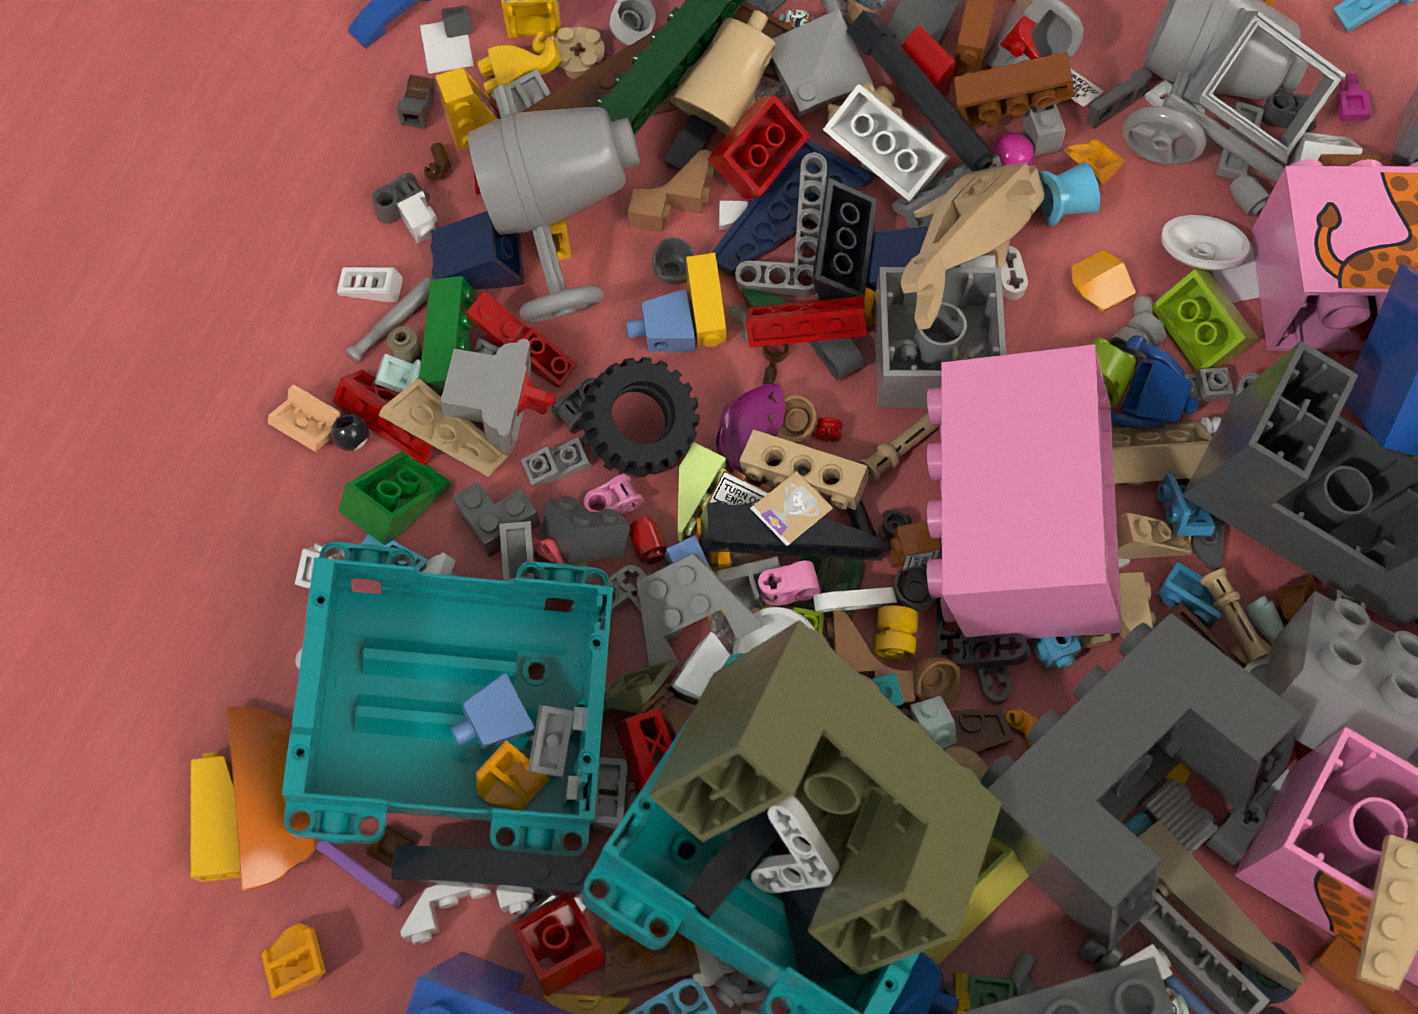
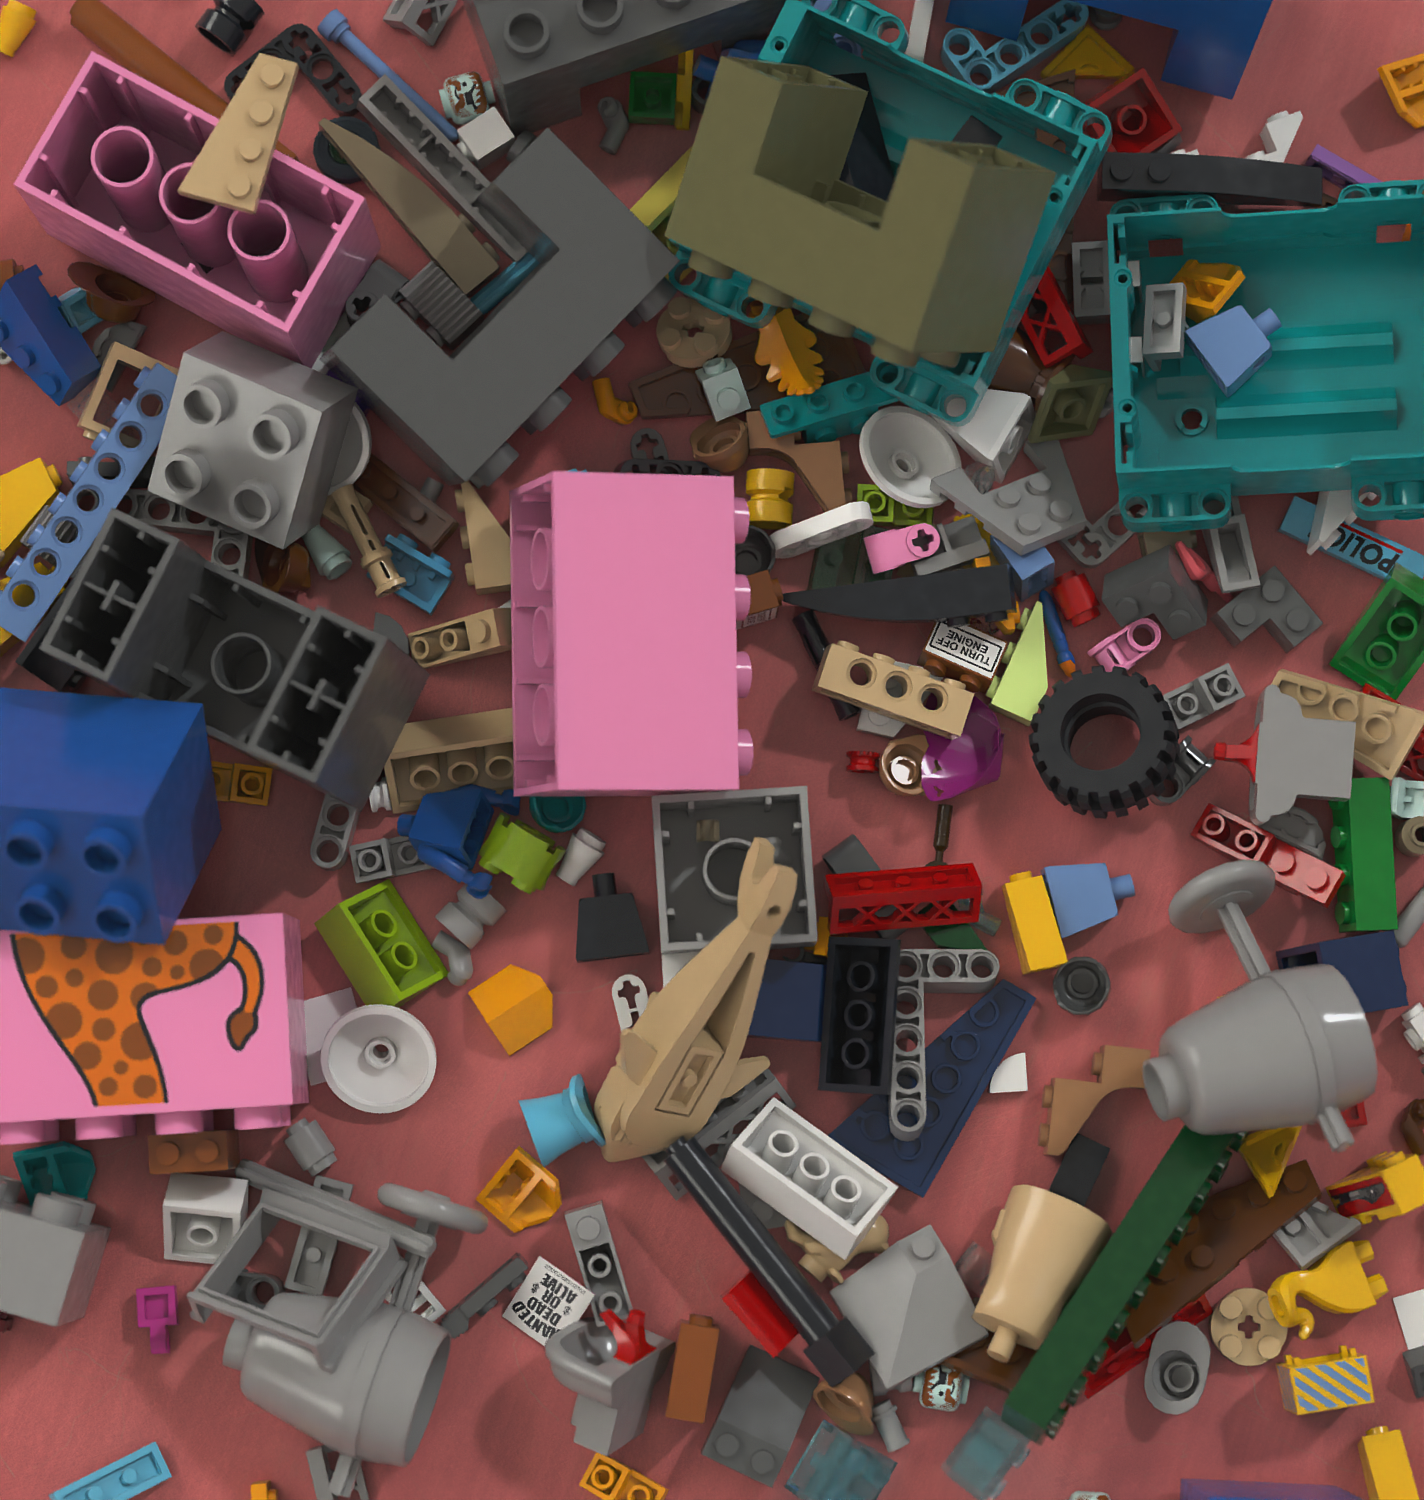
camera: 170 degrees right, 15 degrees up
(661, 499) = (1064, 656): none -> blue piece
(759, 147) = (983, 1159): red brick -> none
(791, 508) = (907, 622): sticker -> none
(813, 862) = (870, 173): white beam -> none
(888, 457) = (785, 734): tan pin -> none
(892, 517) = (783, 637): black plate -> none
(1013, 89) = (639, 1262): dark orange wedge -> none
(1014, 149) = (631, 1195): dark pink hair -> none
(1030, 323) = (608, 923): none -> black torso
(1183, 514) = (434, 697): dark azure bracket -> none

